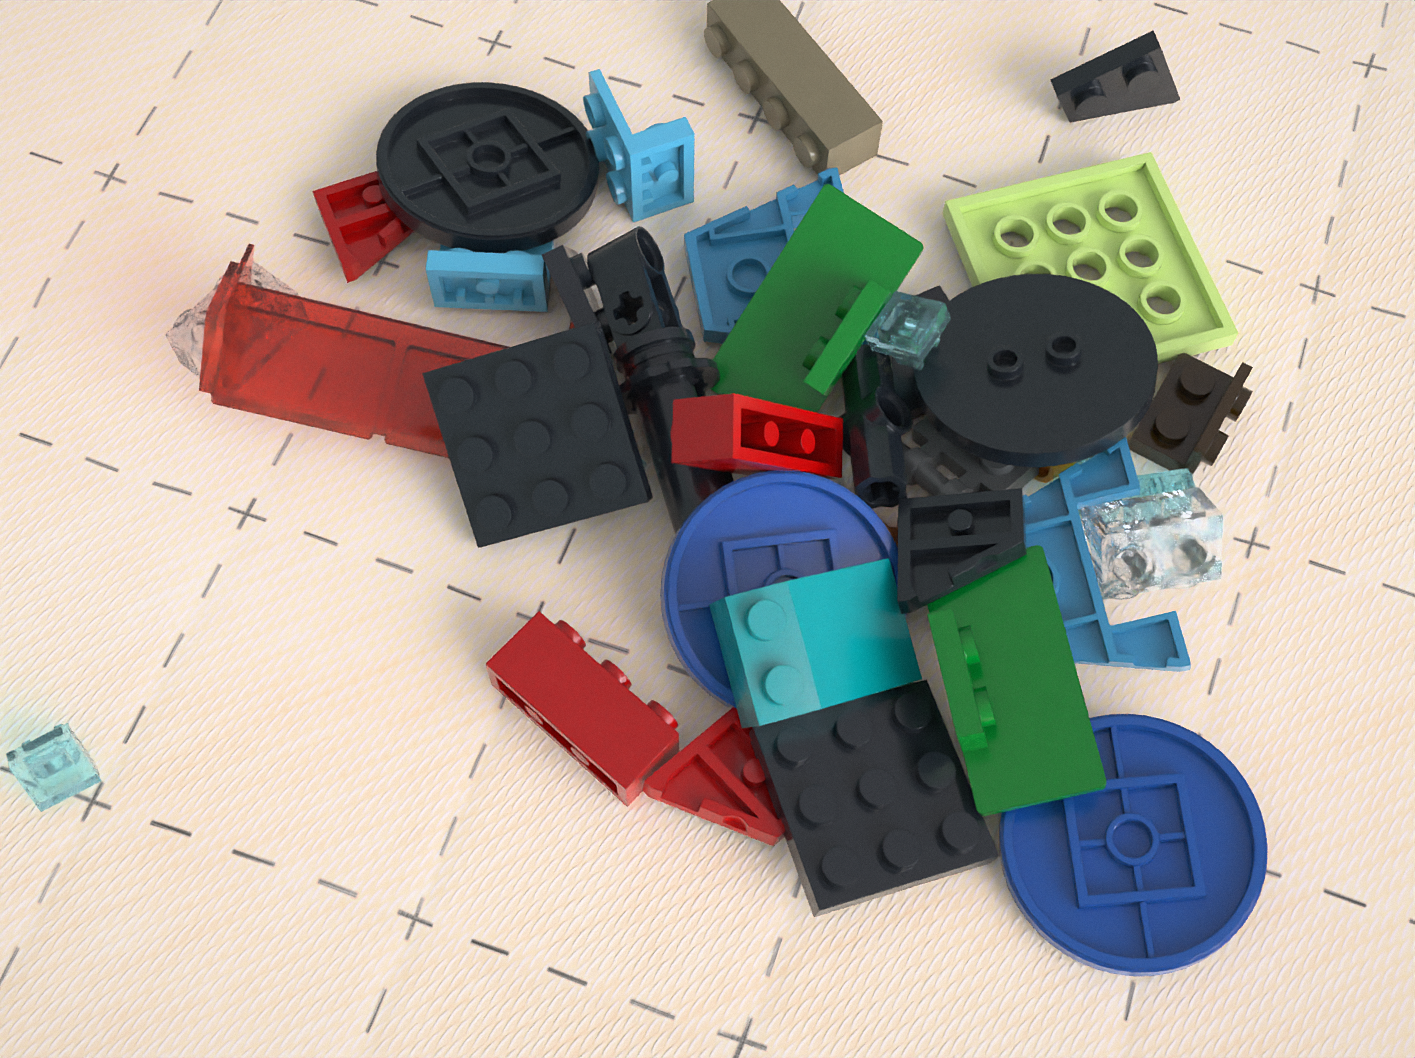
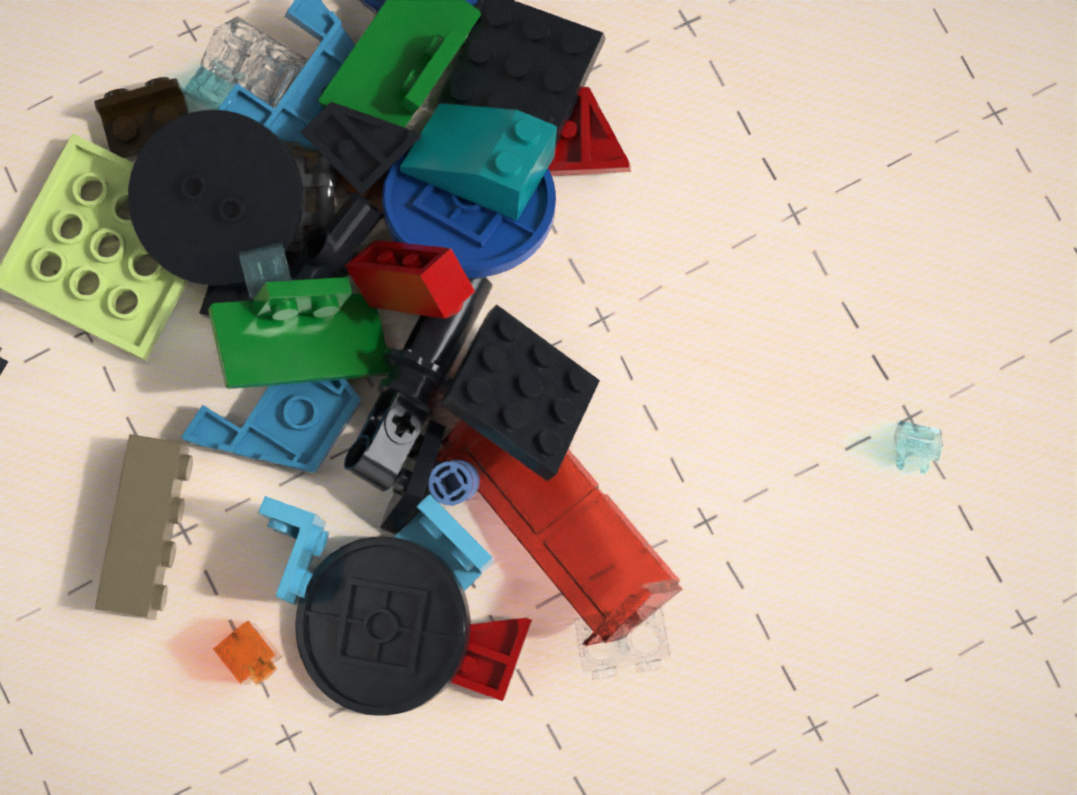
camera: 130 degrees left, 15 degrees up
(531, 311) = (460, 478): none -> medium blue wheel
(584, 705) = (622, 237): red brick -> none
(585, 45) = (248, 654): none -> clear orange brick

